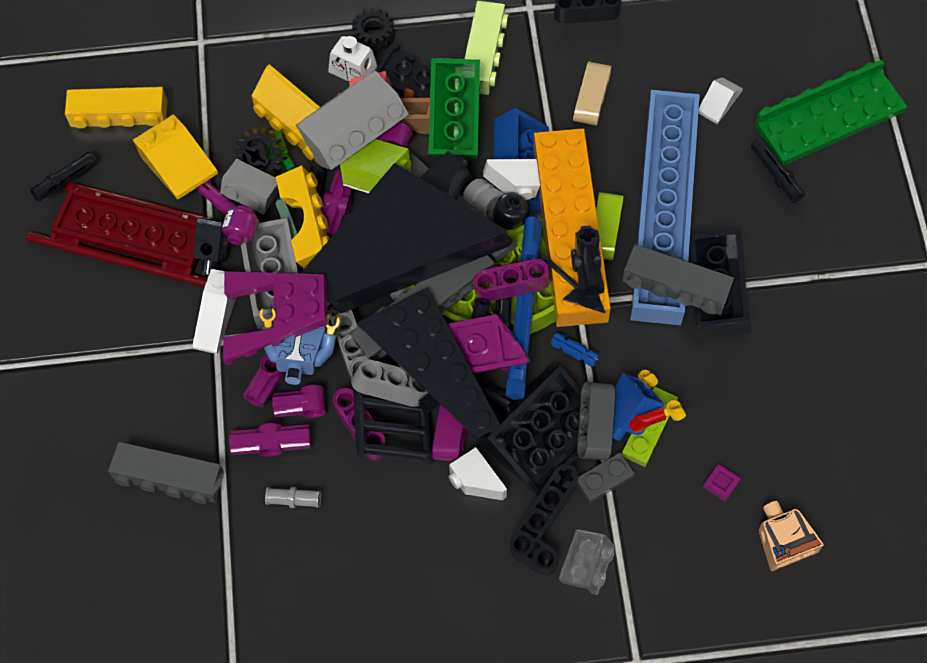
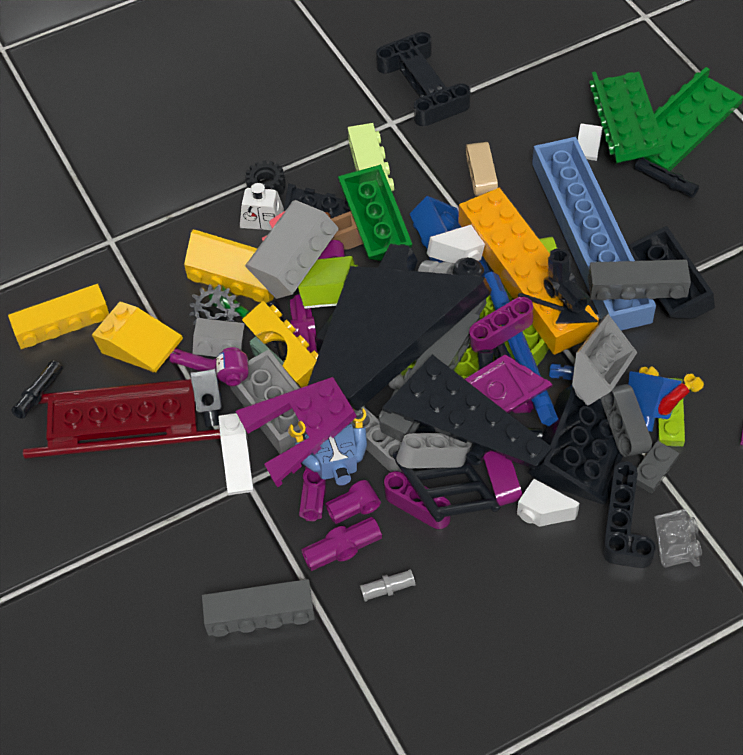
camera: 20 degrees left, 10 degrees down
(595, 352) = (601, 361): none -> light grey slope
(766, 88) = (626, 116): none -> green bracket

